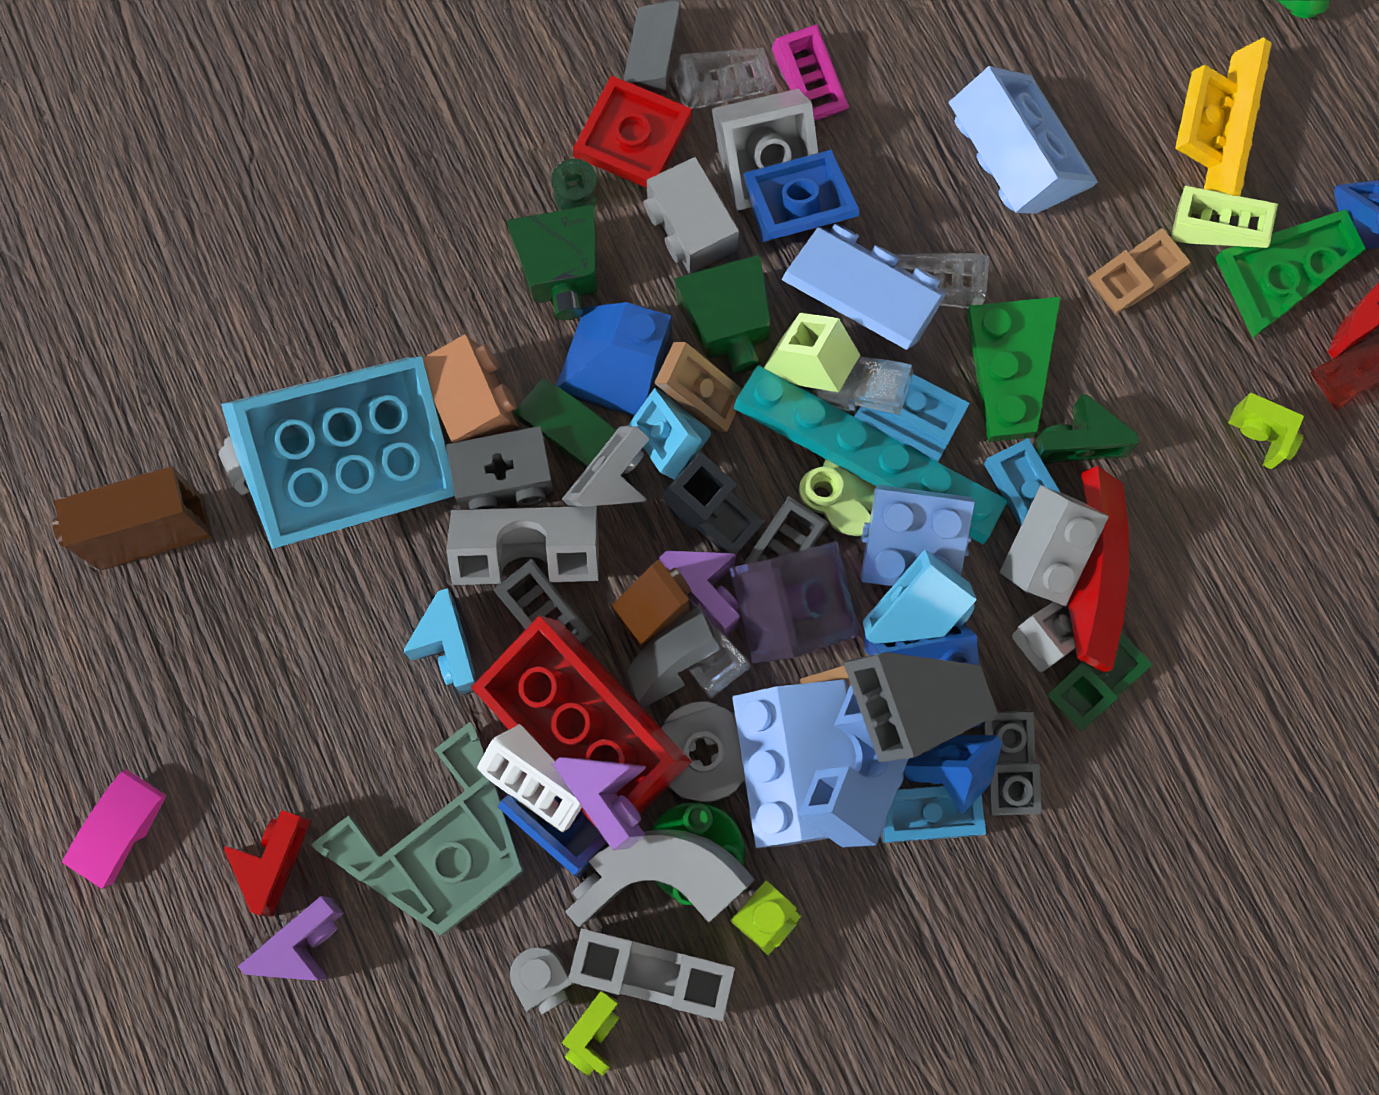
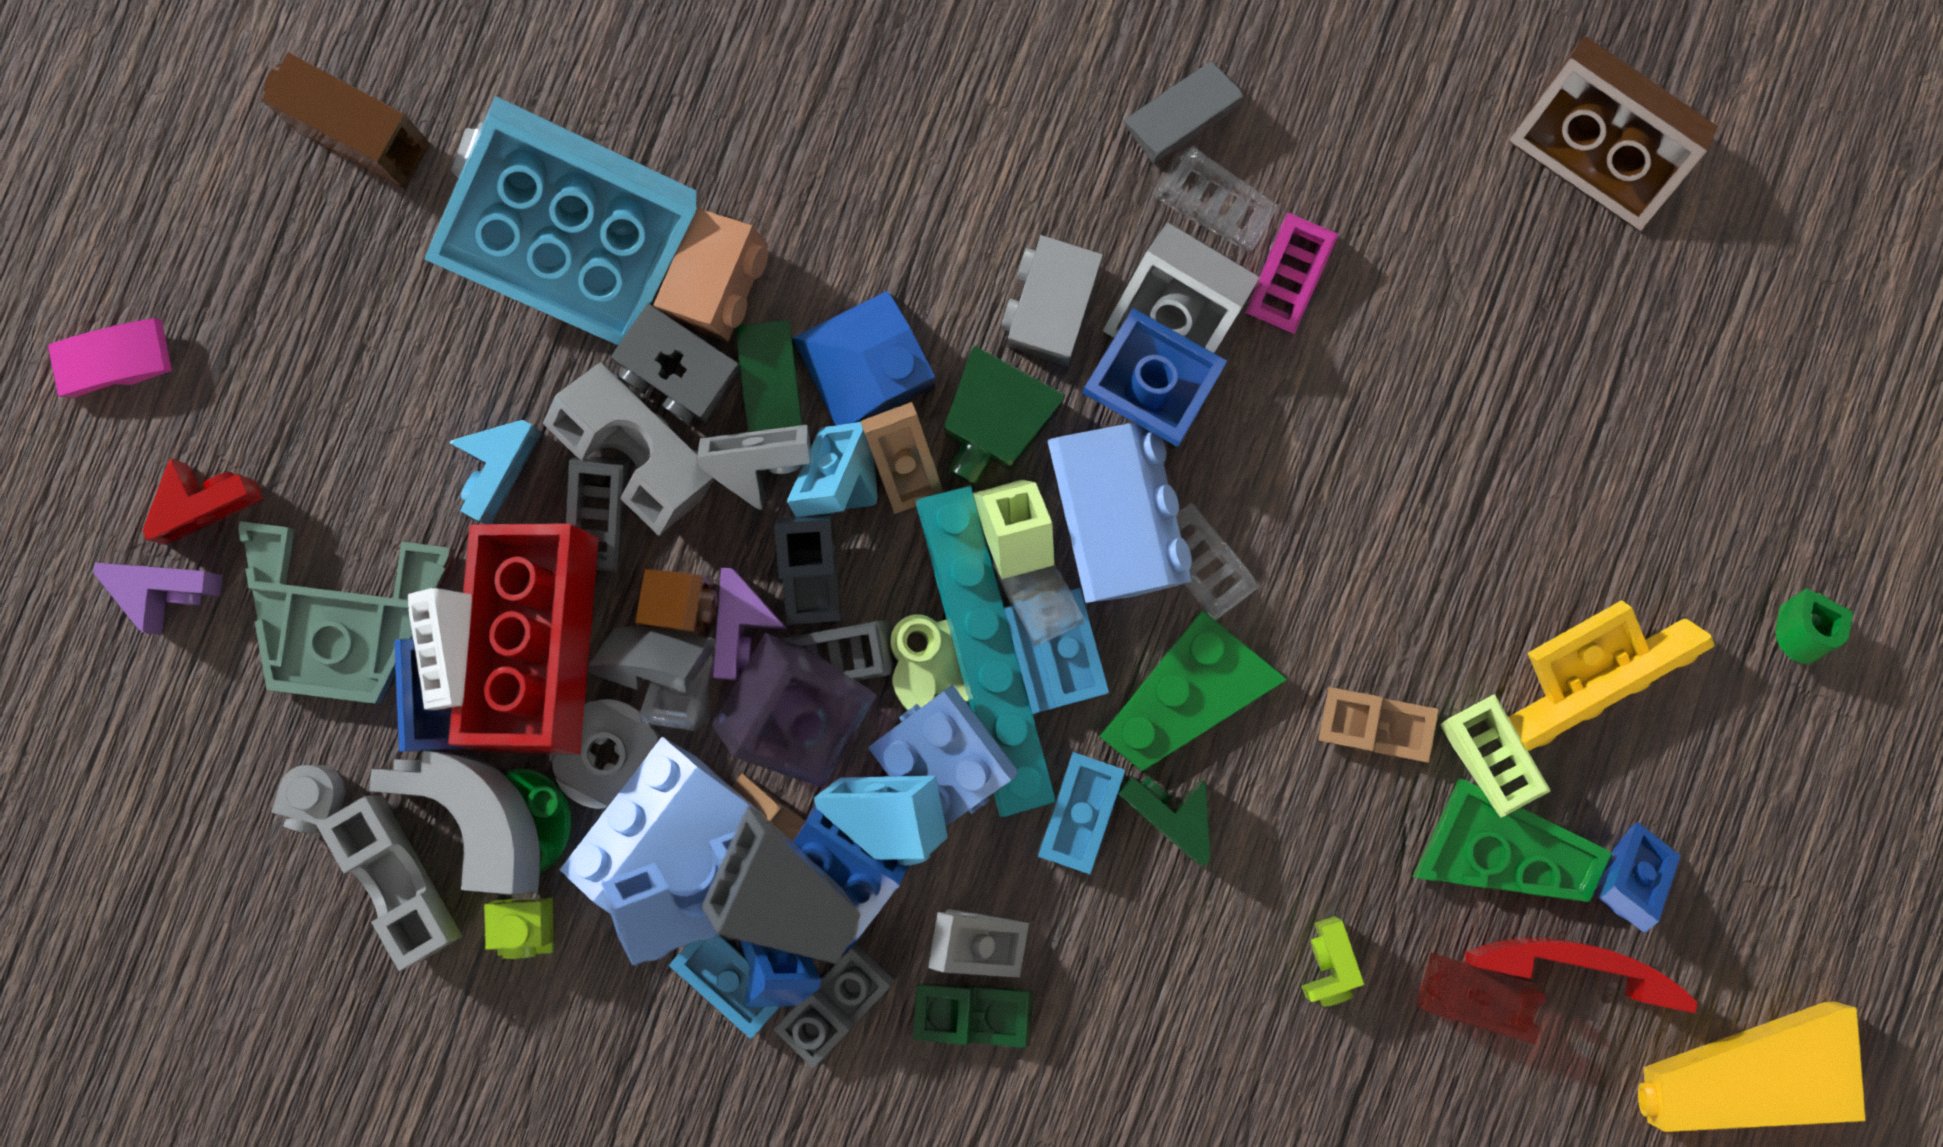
camera: 45 degrees right, 10 degrees up
(558, 257) = (905, 228): dark green torso -> none
(577, 195) = (985, 188): clear green wheel -> none
(594, 1023) = (285, 882): lime bracket -> none
(595, 788) = (468, 704): medium lavender slope -> none
(632, 132) = (1083, 175): red plate -> none
(1020, 141) = (1405, 514): light blue slope -> none
(1053, 545) = (1039, 877): light grey brick -> none
(1101, 591) = (1052, 942): red slope -> none

